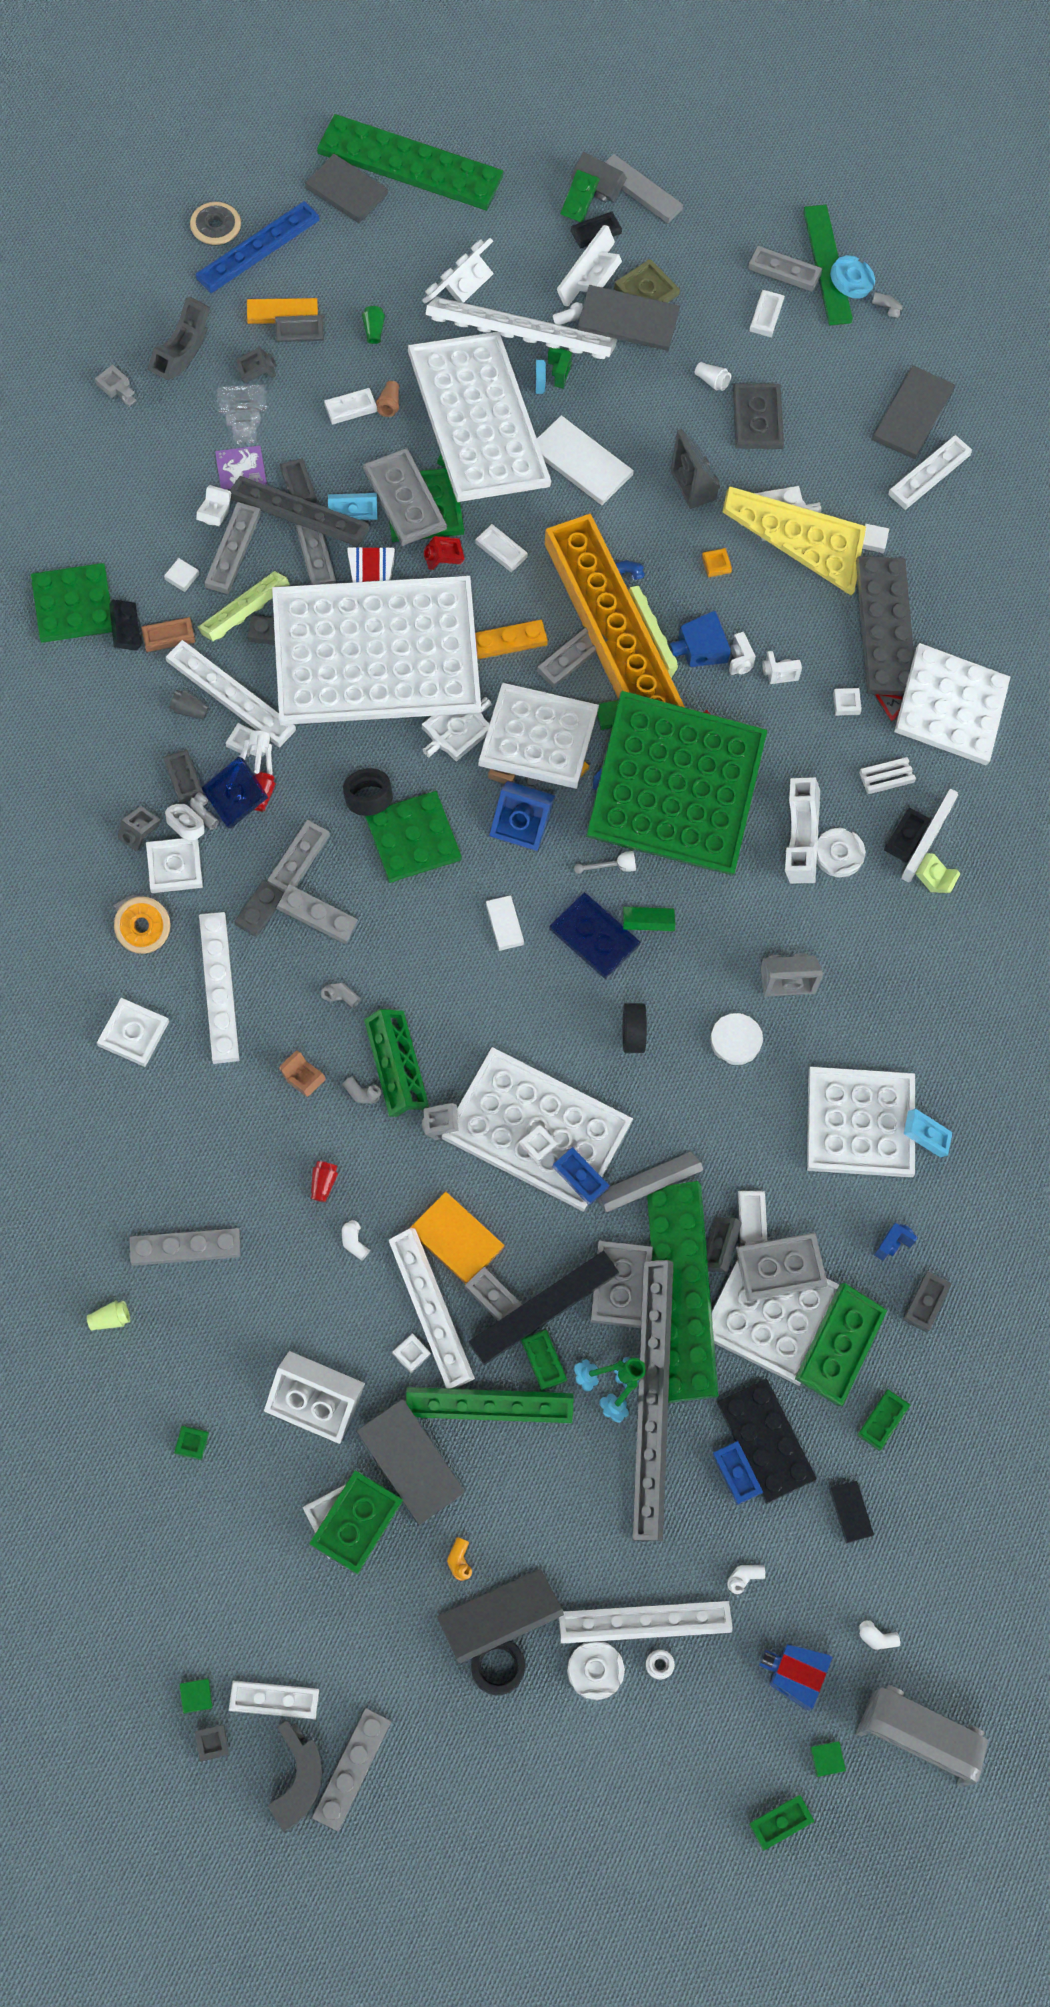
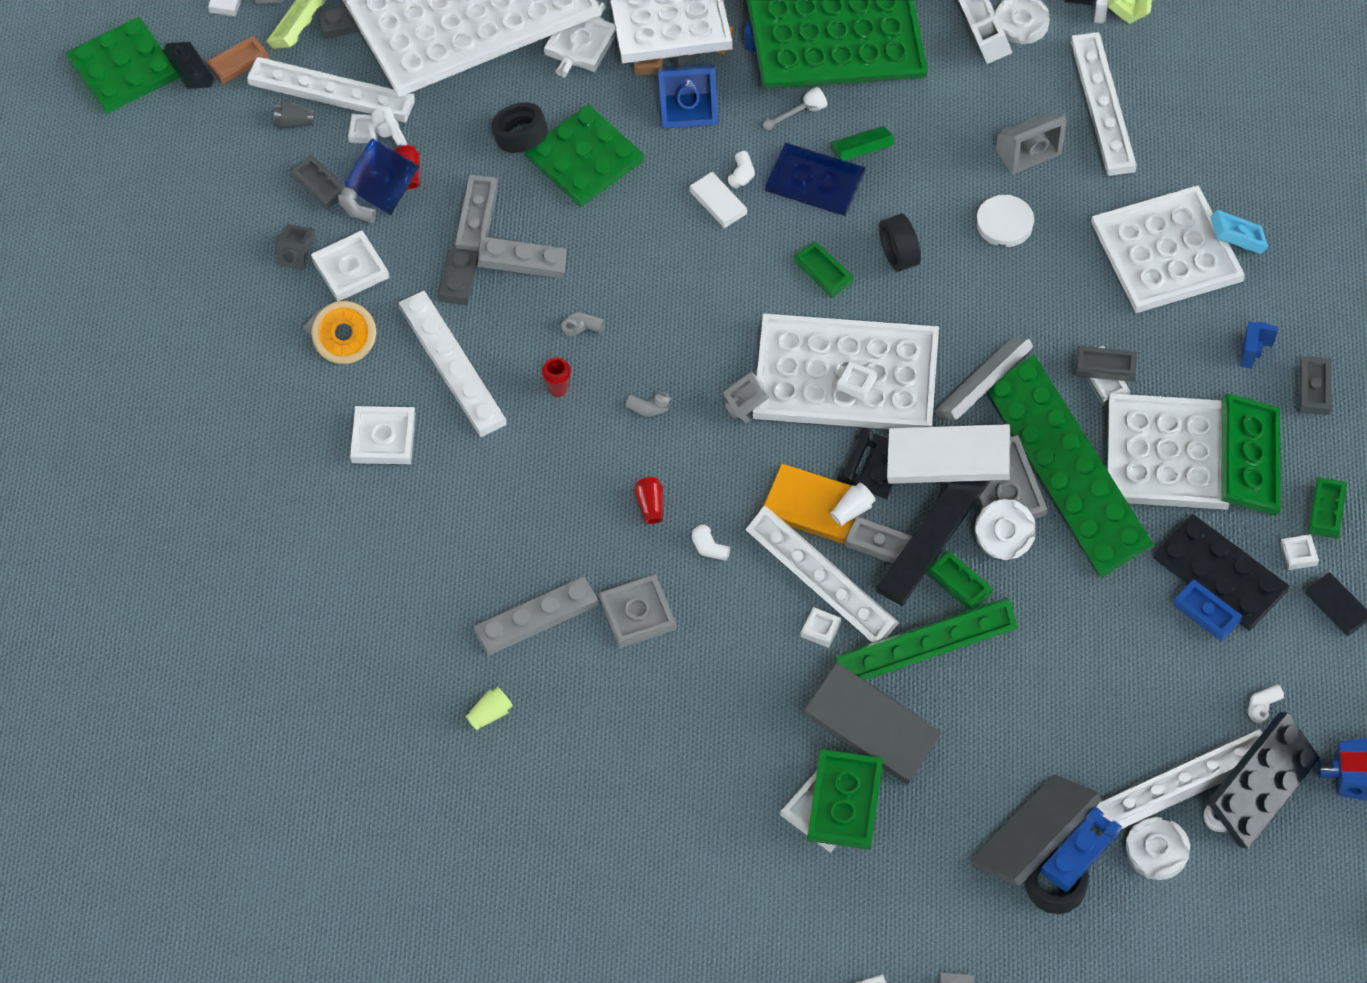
camera: 15 degrees left, 10 degrees down
(185, 821) = (342, 220): white plate -> none
(191, 1443) = (634, 796): green tile -> none
(268, 1276) = (637, 611): none -> light grey tile
(294, 1036) = (556, 375): none -> red cone
(301, 1074) = (579, 410): nougat bracket -> none
(314, 1397) = (741, 703): white slope -> none
(391, 1062) = (669, 364): green fence -> none
(457, 1562) = (964, 801): light orange arm -> none
(484, 1256) = (854, 502): none -> white cone
(525, 1652) = (1080, 850): none -> blue plate
(528, 1227) = (876, 472): none -> black plate
(538, 906) = (743, 172): none -> white arm
(563, 1023) = (823, 269): none -> green tile
(580, 1176) = (914, 394): blue plate -> none
(583, 1244) = (949, 454): none -> white tile
(601, 1330) = (1005, 529): none -> white tile
(628, 1372) = (1052, 559): plant -> none
(653, 1401) = (1091, 574): plate -> none
(708, 1651) = (1263, 780): none -> plate
(722, 1243) = (1086, 406): dark grey plate -> none
(757, 1210) = (1106, 363): none -> dark grey tile
(781, 1266) = (1156, 404): light grey tile -> none
(841, 1449) = (1299, 552): none -> white tile
(870, 962) = (1103, 104): none -> white plate

